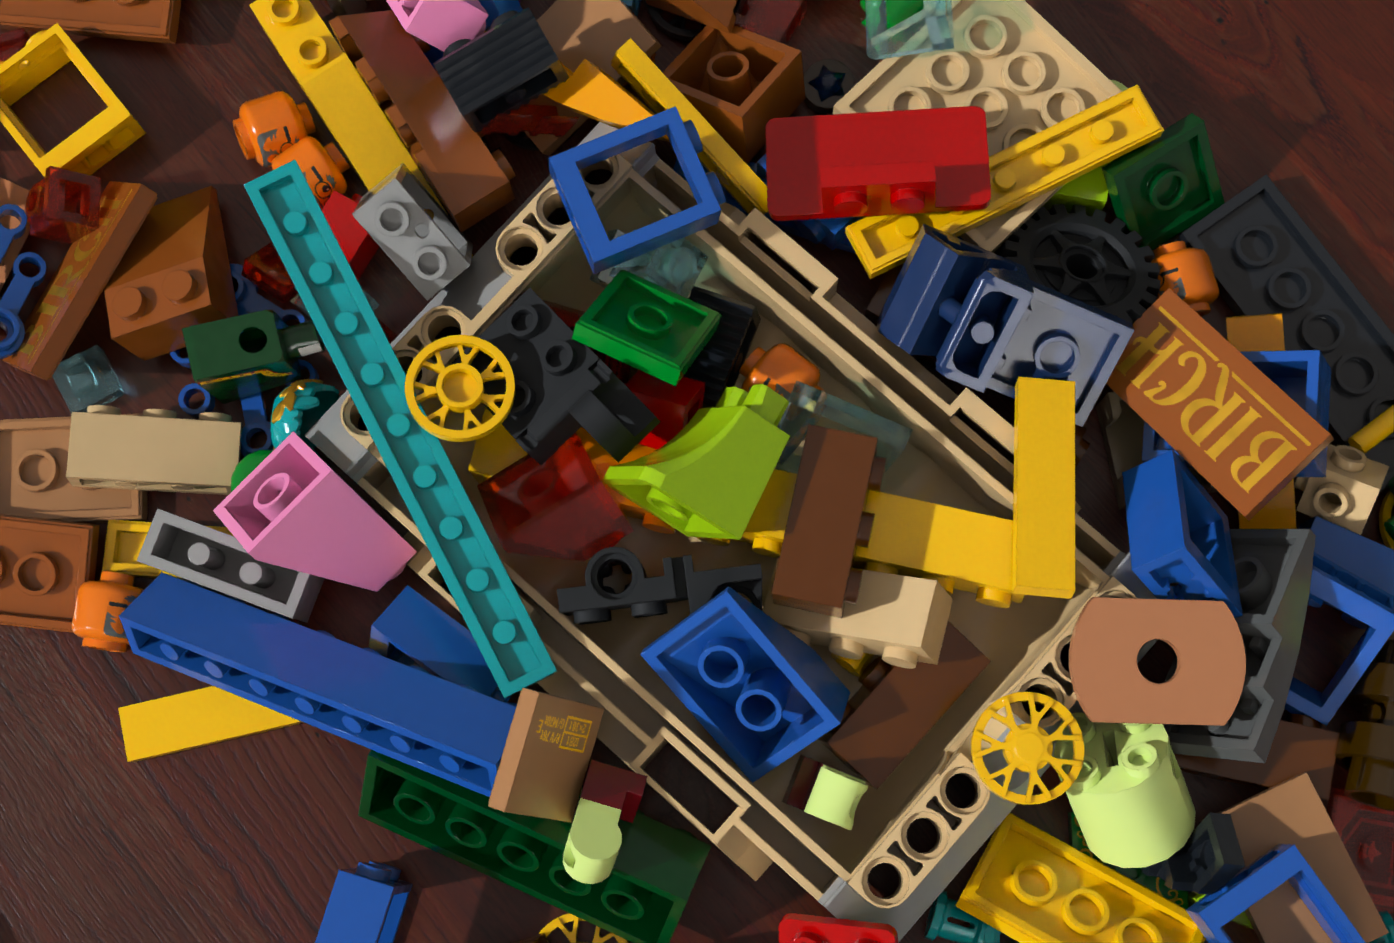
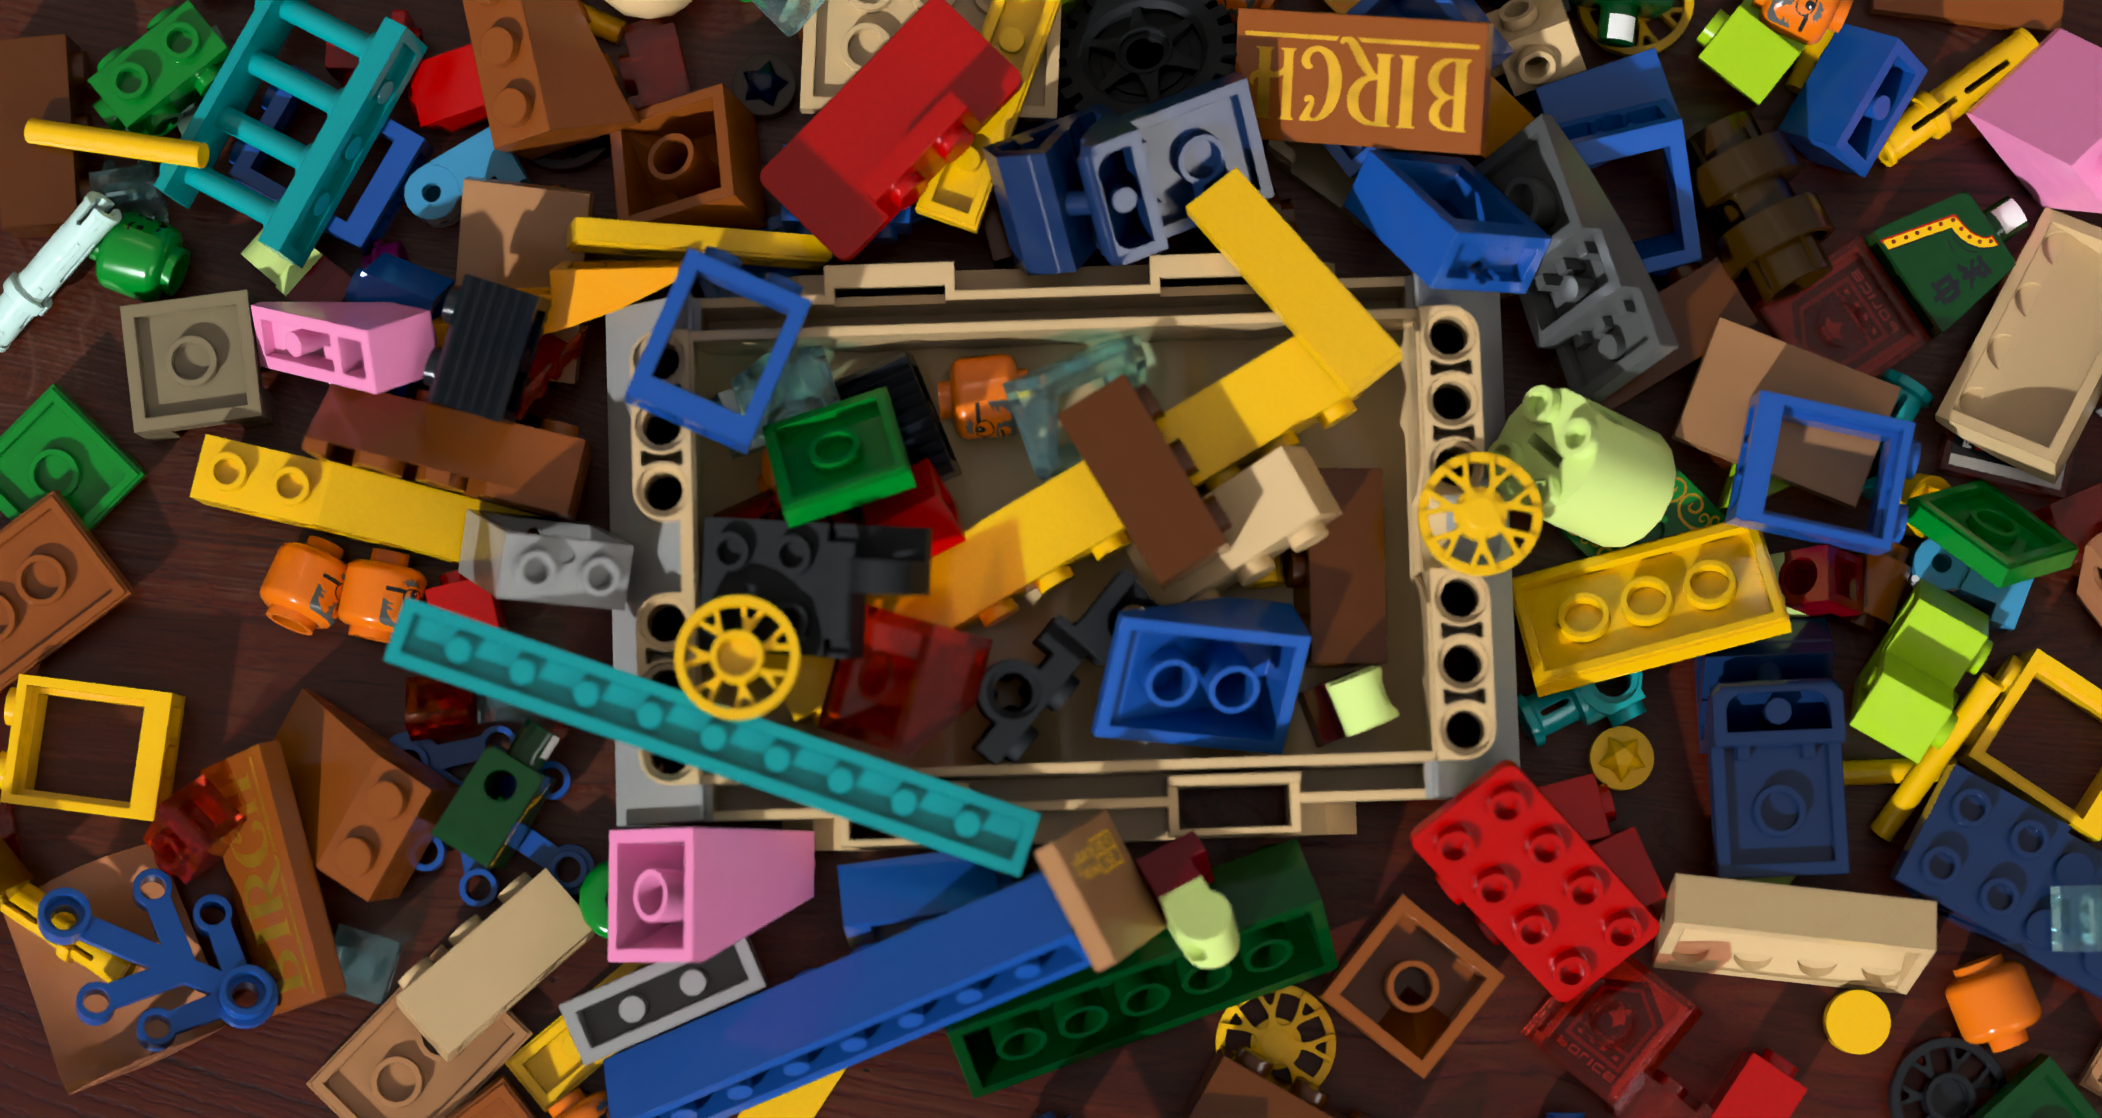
camera: 50 degrees left, 5 degrees up
(300, 408) = (588, 810): teal hair -> none
(713, 468) = (1010, 524): lime hips -> none
(1205, 861) = (1704, 468): black slope -> none
(1207, 652) = (1463, 356): nougat piece -> none

